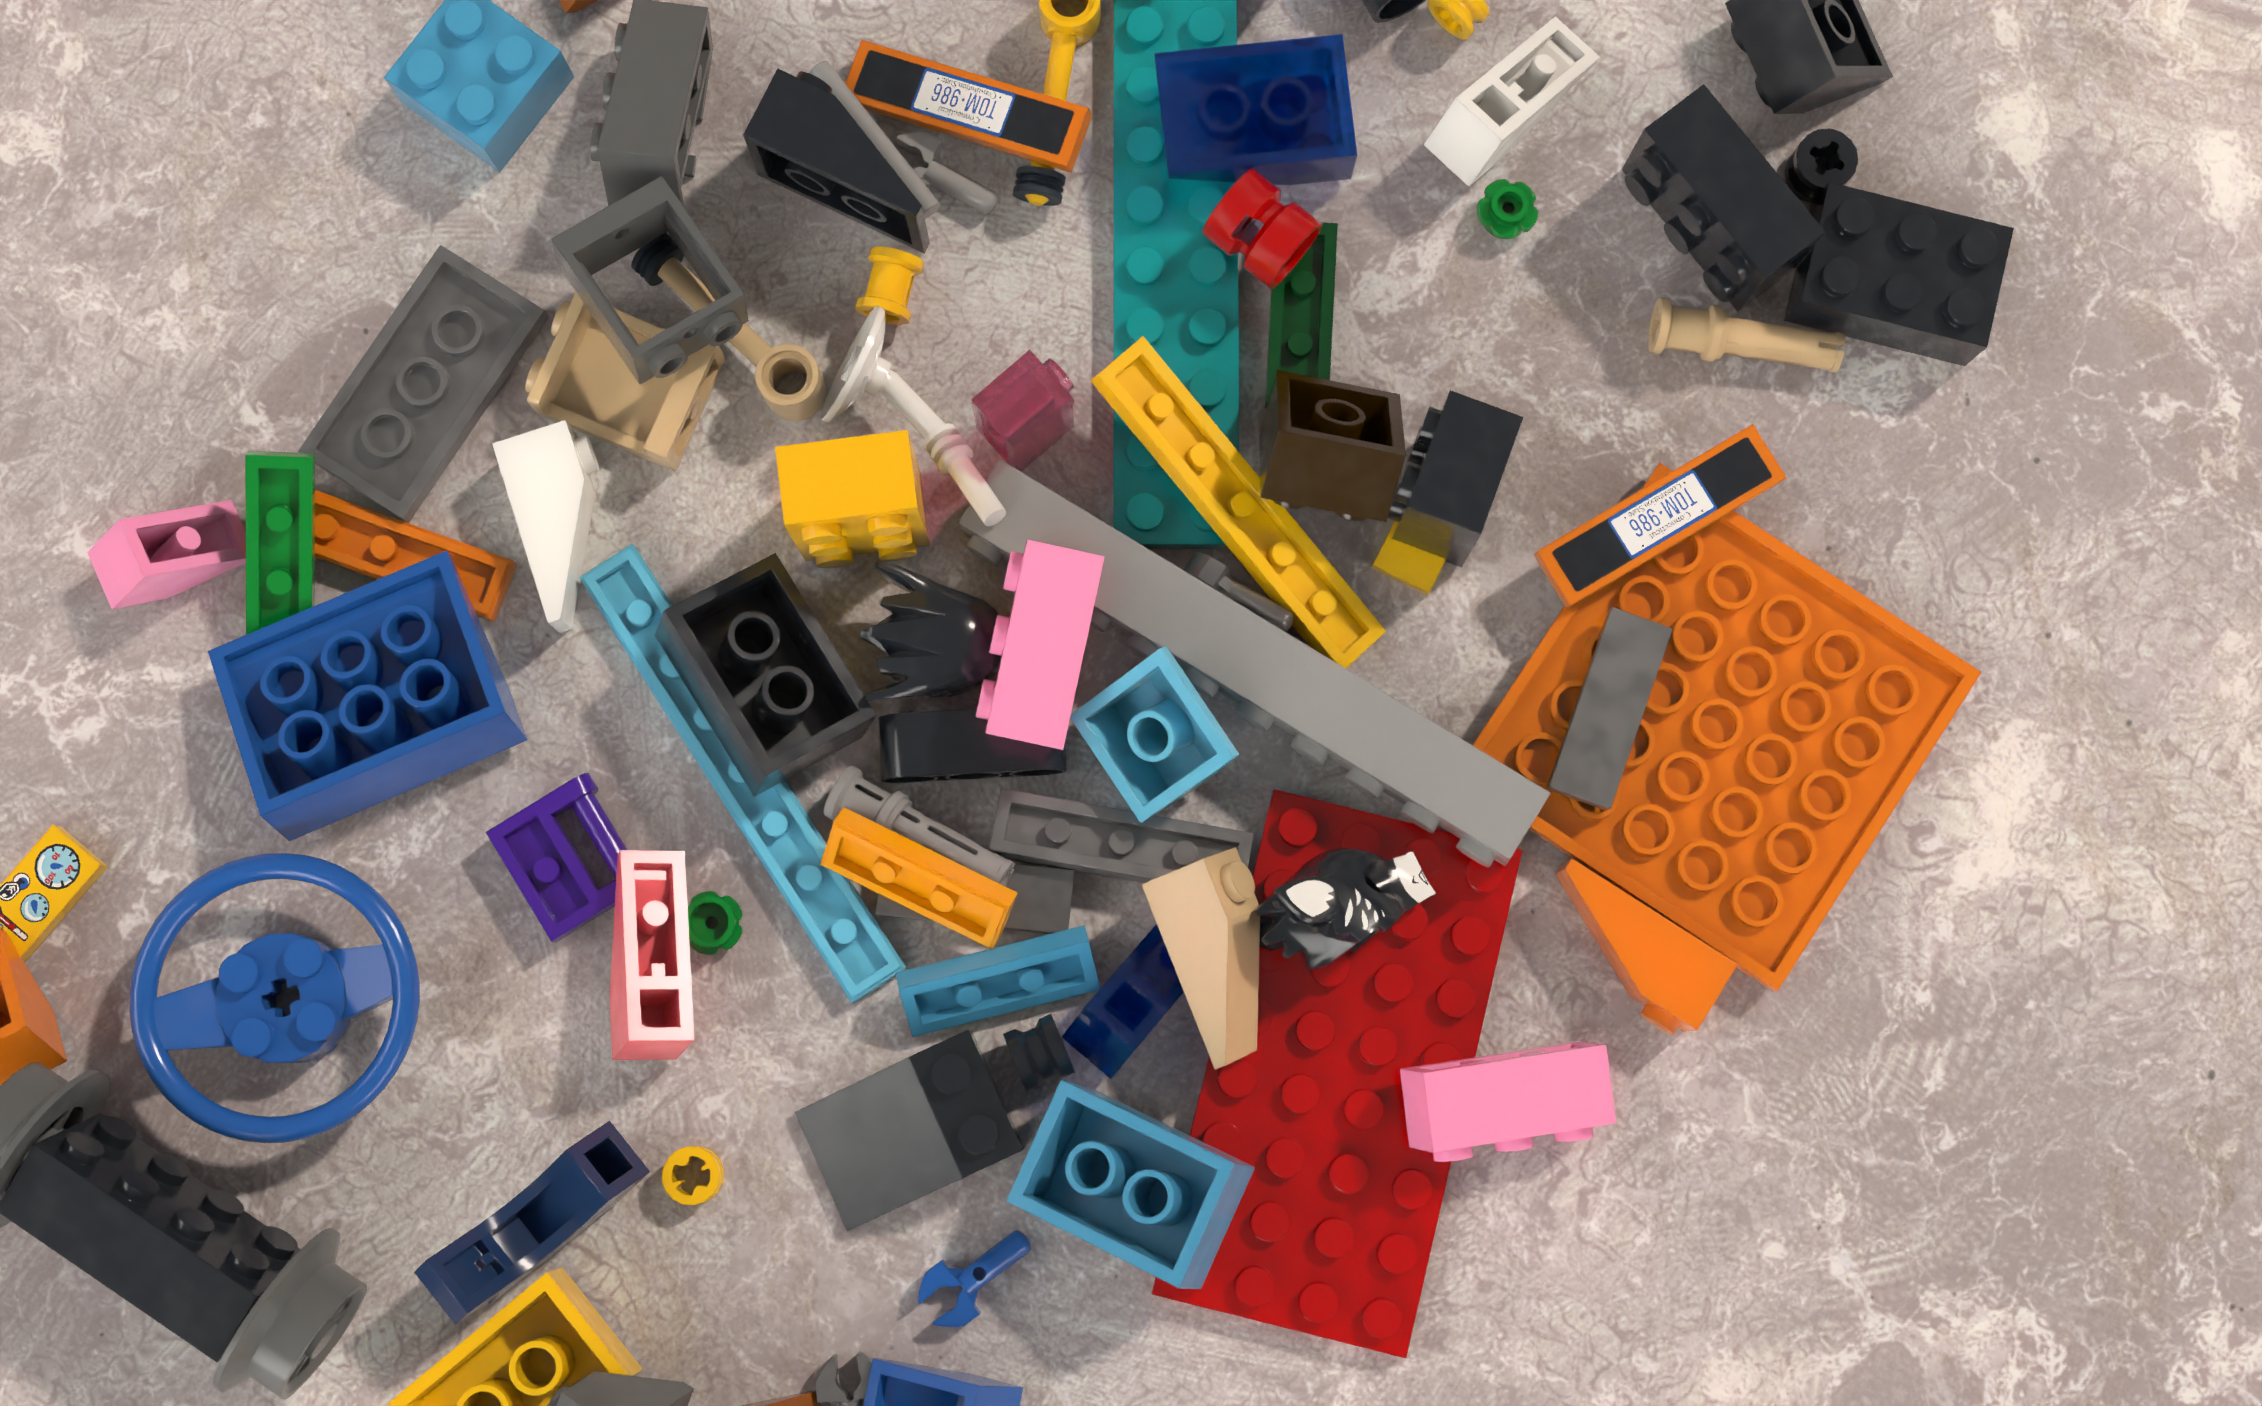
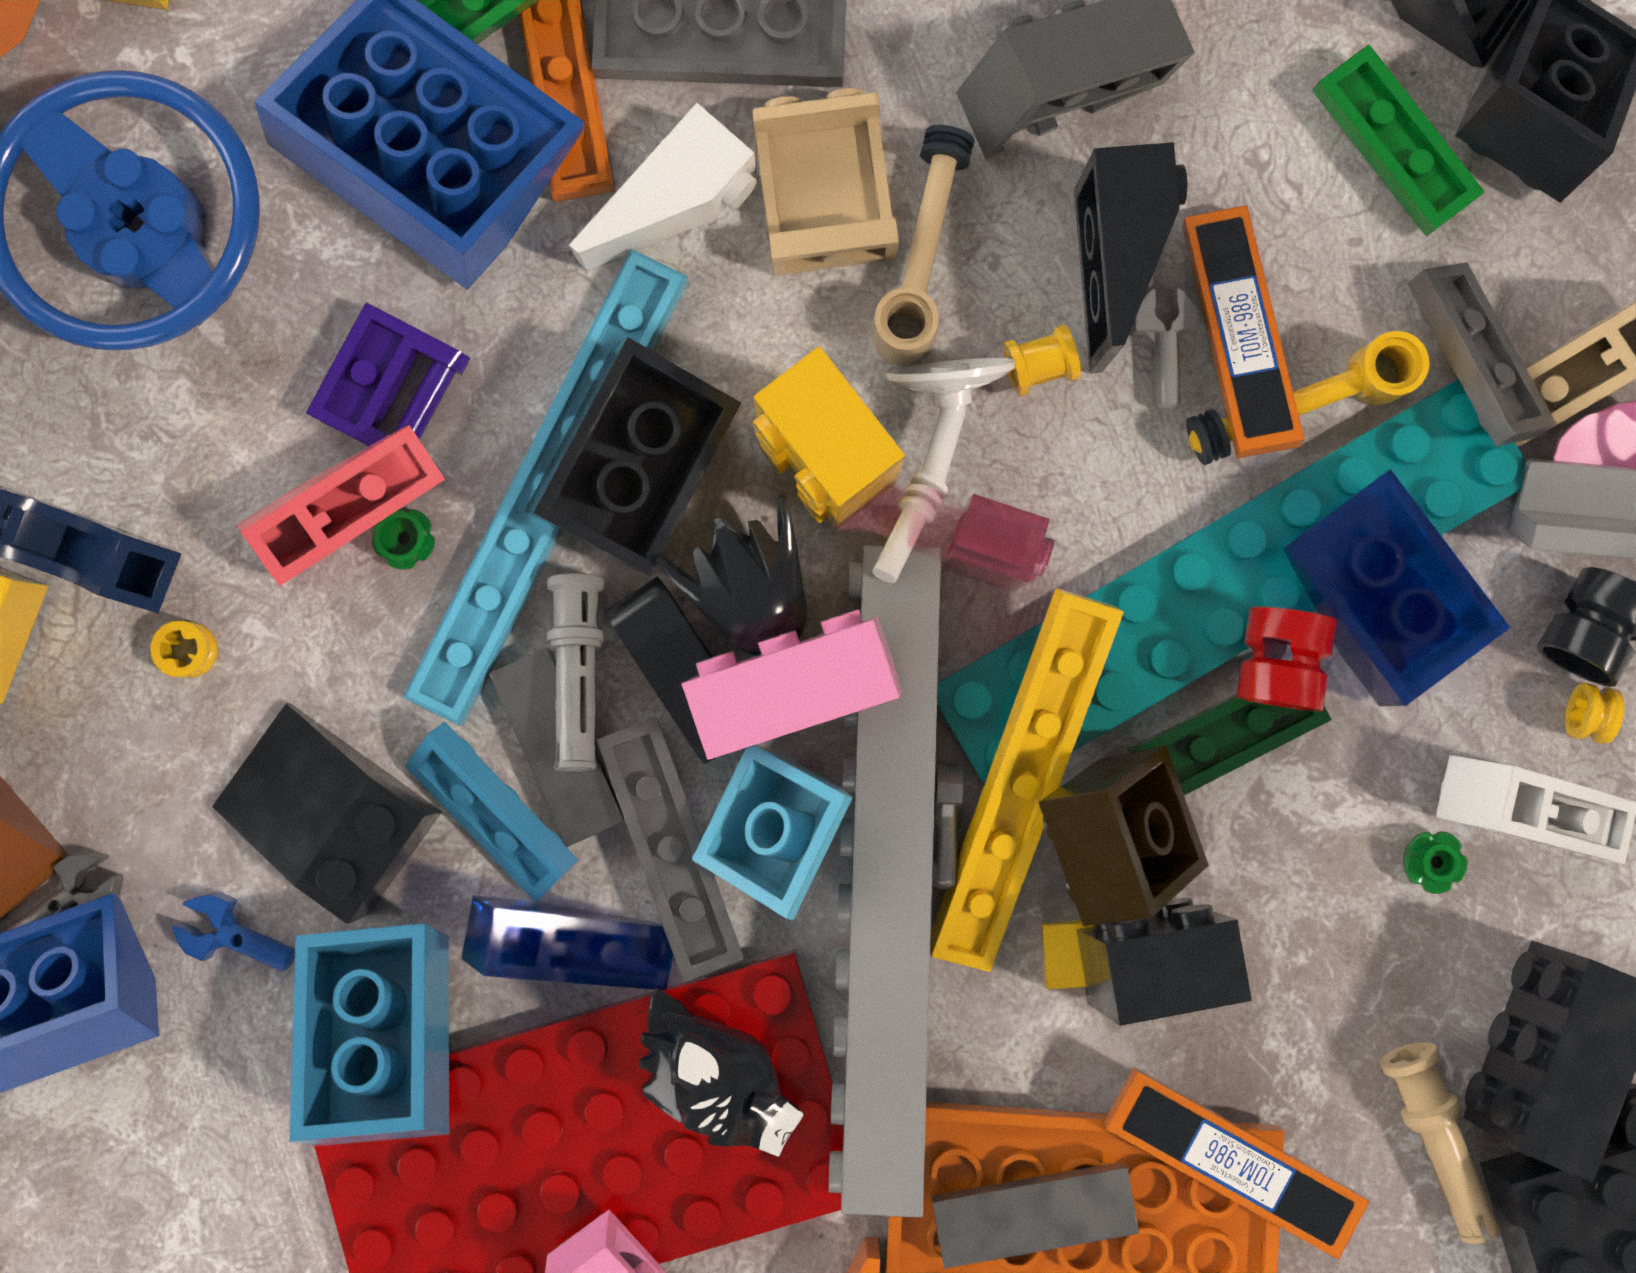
camera: 65 degrees right, 5 degrees up
(620, 231) = (946, 97): dark grey window -> none
(918, 878) = (533, 694): light orange tile -> none
(928, 201) = (1165, 270): light grey bar -> none
(1039, 1053) = (448, 883): black wheel -> none
(1214, 947) = (621, 985): tan slope -> none

